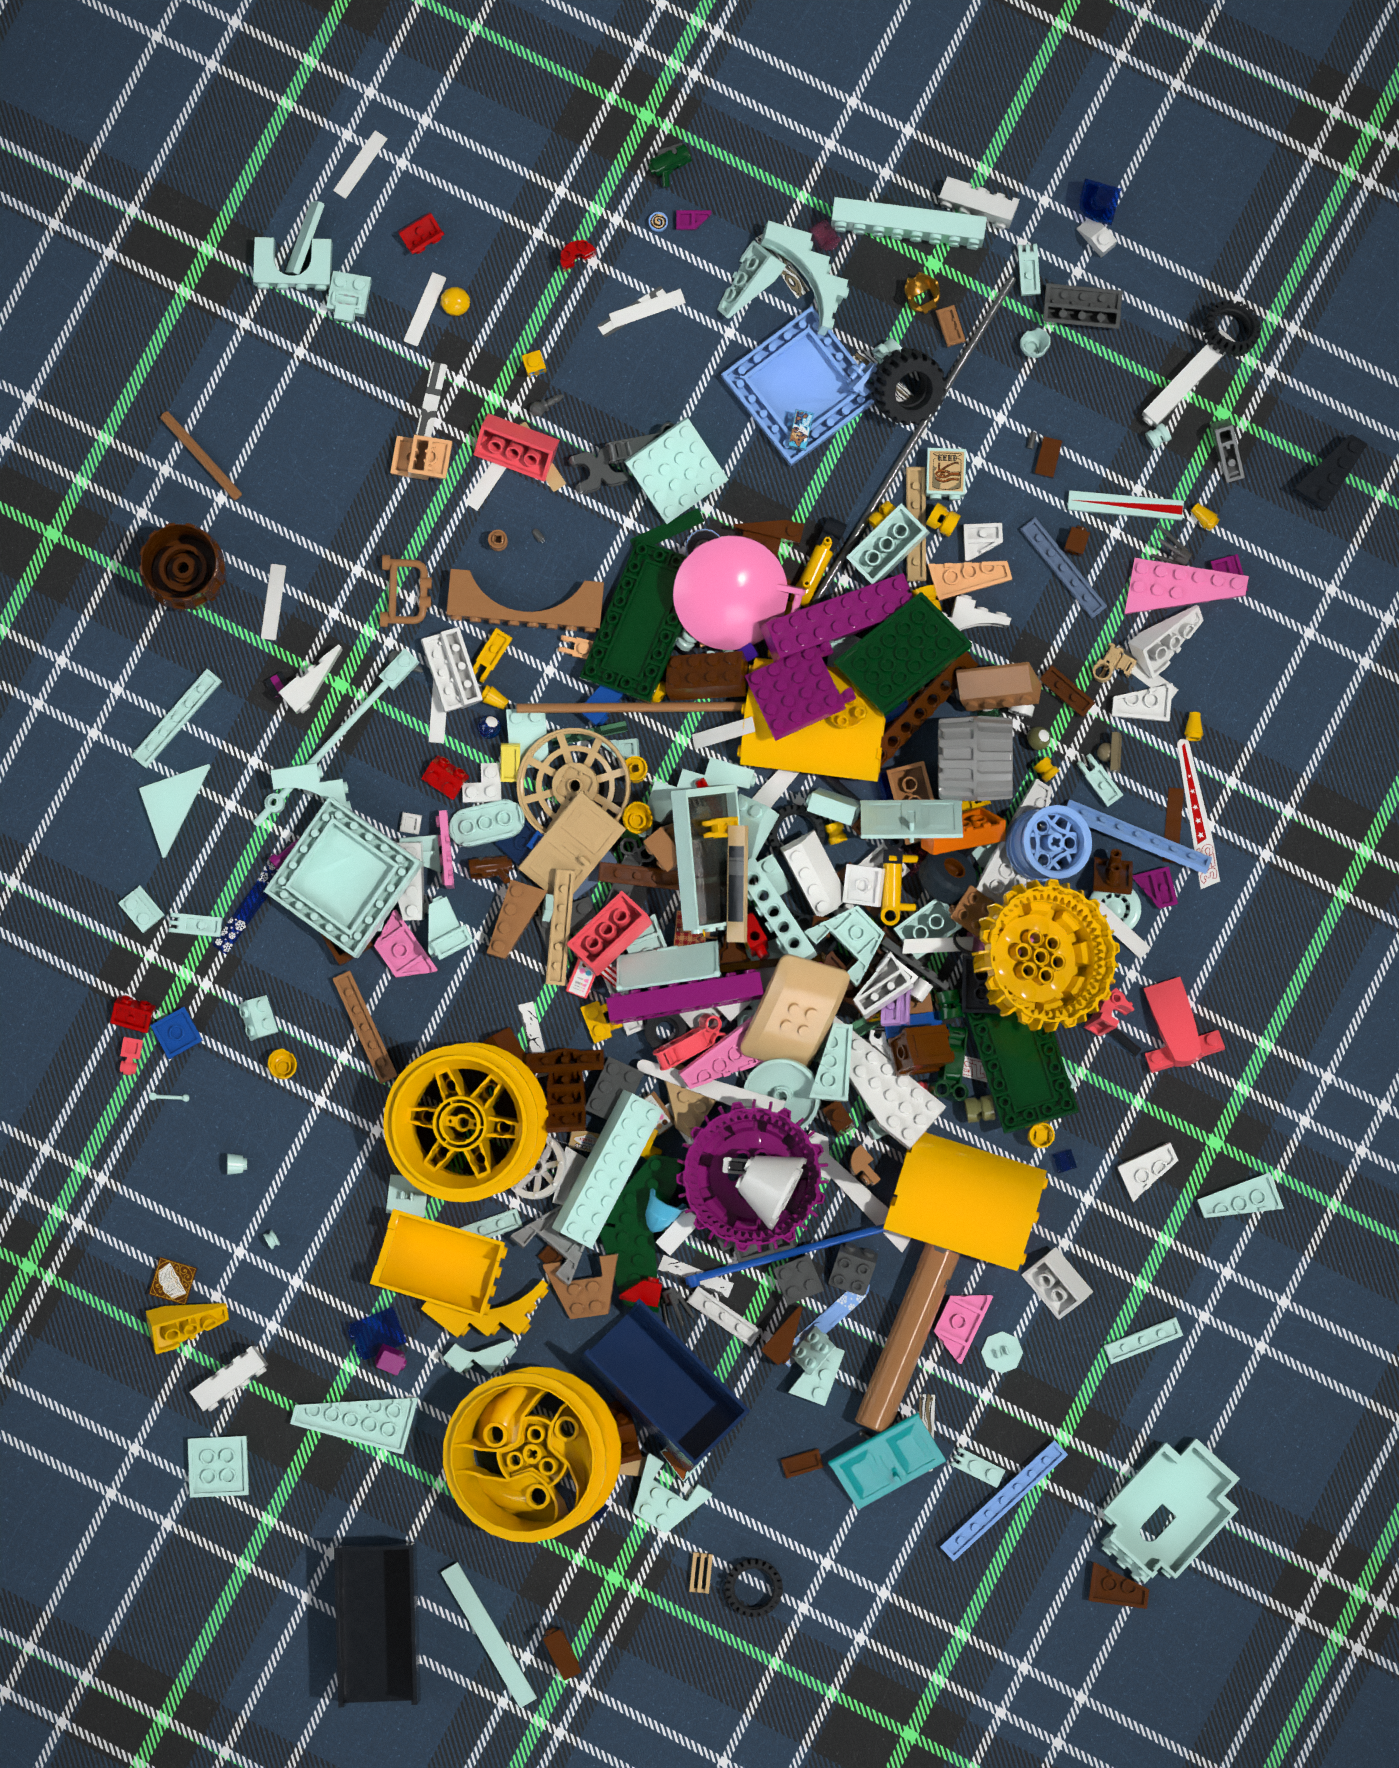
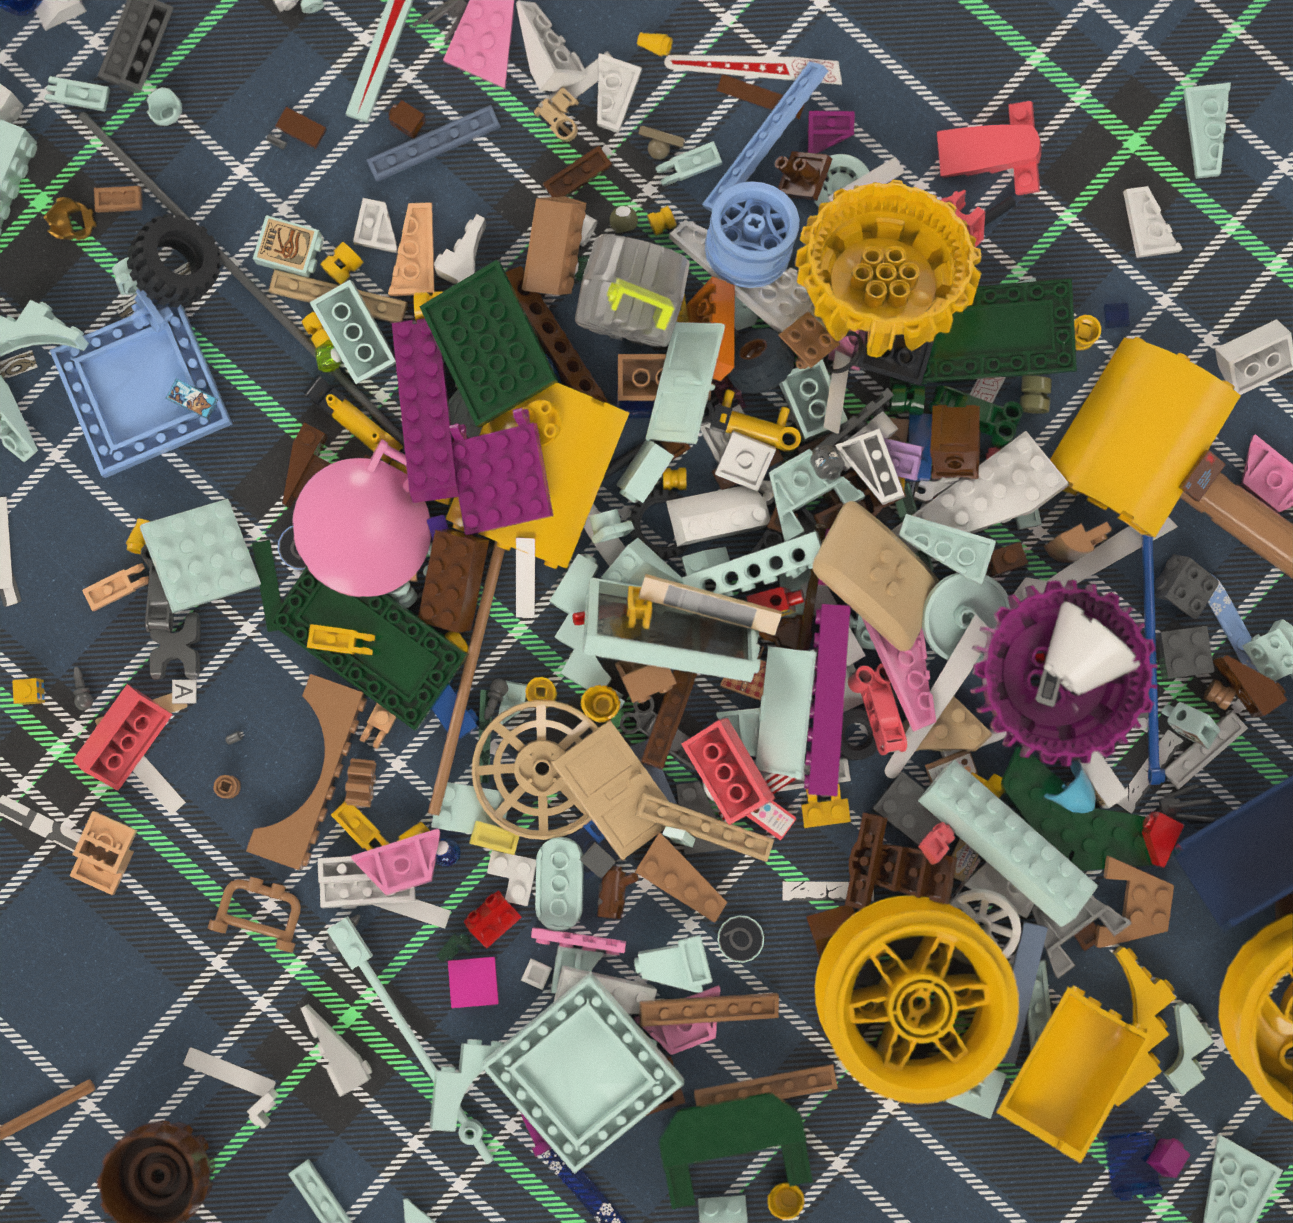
camera: 75 degrees left, 0 degrees up
(257, 636) = (265, 1103): none -> white bracket
(276, 683) = (328, 1094): tile -> none
(328, 1002) = (731, 1130): none -> dark green wedge
(392, 775) = (473, 982): none -> dark pink tile
(413, 750) = (450, 948): none -> clear green bracket
(417, 965) = (708, 1009): none -> medium nougat tile
(471, 693) = (401, 863): none -> bright pink wing
(479, 978) = (740, 939): none -> black tile
(492, 1210) = (1025, 973): none -> sand blue tile
(512, 848) = (597, 860): none -> dark grey slope
(527, 644) = (360, 782): none -> medium nougat gear
(565, 486) = (184, 691): none -> white tile
(593, 1110) = (935, 843): none -> coral plate
(629, 735) = (498, 689): none -> dark grey bar
(633, 408) = (114, 587): none -> light nougat hinge
(635, 596) = (337, 640): none -> yellow hinge
(676, 415) = (136, 540): none -> yellow cone
(742, 1293) = (1191, 724): none -> light aqua torso
(772, 1316) = (1219, 694): none -> medium nougat wheel
(782, 789) = (609, 526): none -> light aqua piece
(861, 529) = (327, 358): none -> clear neon green piece
(875, 948) = (827, 462): none -> dark grey head
(942, 1254) = (1202, 475): none -> reddish brown tile
(965, 764) = (664, 305): none -> neon yellow panel

